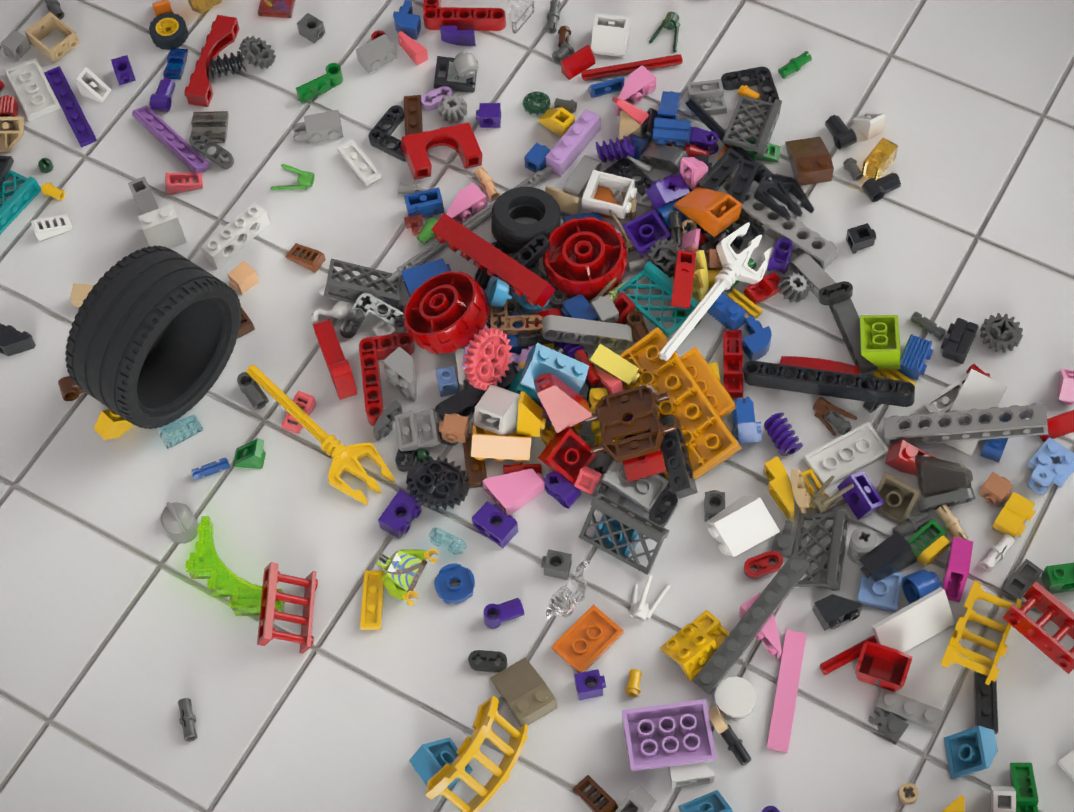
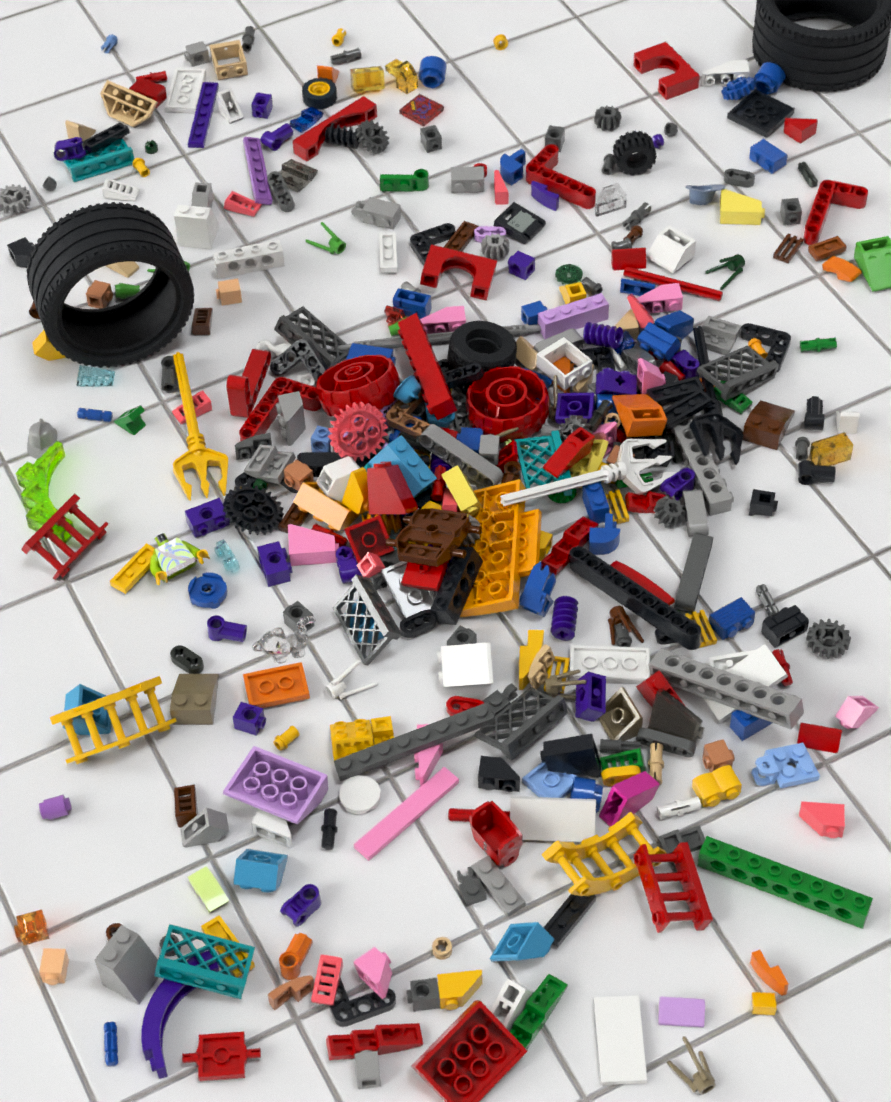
camera: 30 degrees right, 10 degrees down
(319, 257) = (292, 300): dark orange slope -> none
(465, 64) = (529, 217): light grey head -> none
(486, 183) = (478, 311): light nougat pin -> none
(717, 719) = (327, 798): tan beam -> none
(835, 293) = (699, 531): pearl dark grey beam -> none
(861, 543) = (557, 727): light grey piece -> none
(880, 340) = (708, 587): lime slope -> none

